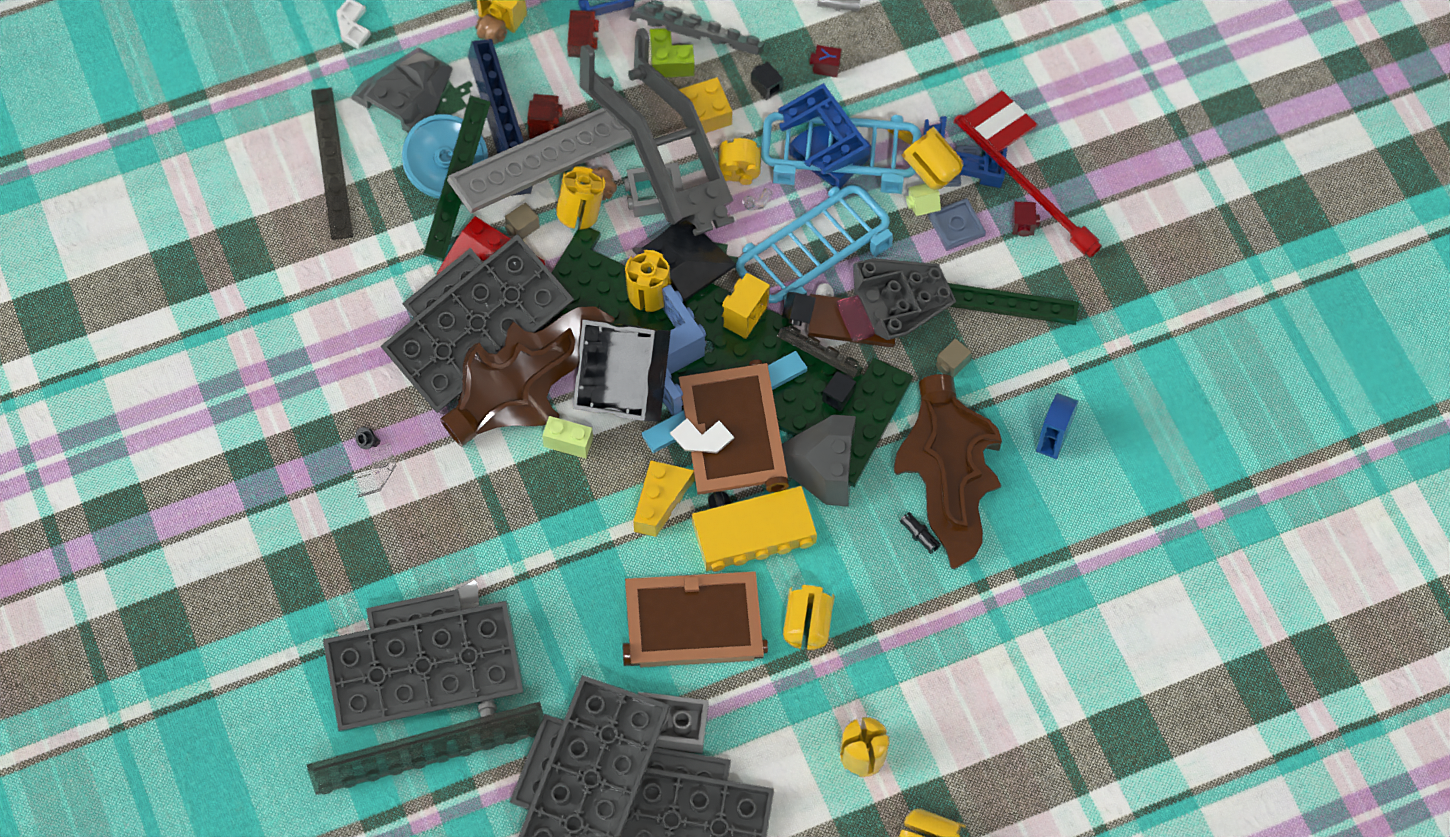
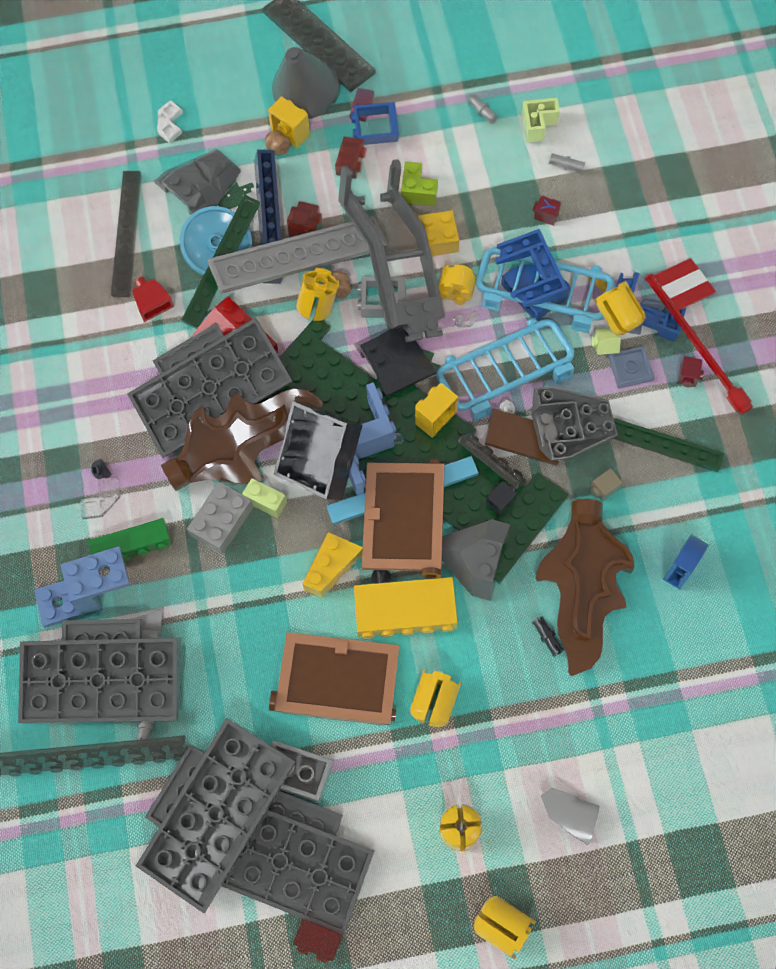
camera: 15 degrees right, 5 degrees up
(381, 234) = (151, 298): none -> red torso
(383, 560) = (82, 586): none -> medium blue bracket
(423, 511) = (135, 540): none -> green brick
(521, 467) = (220, 518): none -> light grey brick
(522, 221) = (267, 307): dark tan brick -> none
(646, 278) = (355, 372): yellow cylinder -> none
(692, 440) = (381, 525): white tile -> none
(693, 26) = (442, 164): dark grey wing -> none
(766, 80) = (494, 219): black brick -> none
(798, 308) = (480, 419): black brick -> none
(855, 318) = (528, 436): clear pink tile -> none
(981, 712) = (571, 813): none -> light grey panel

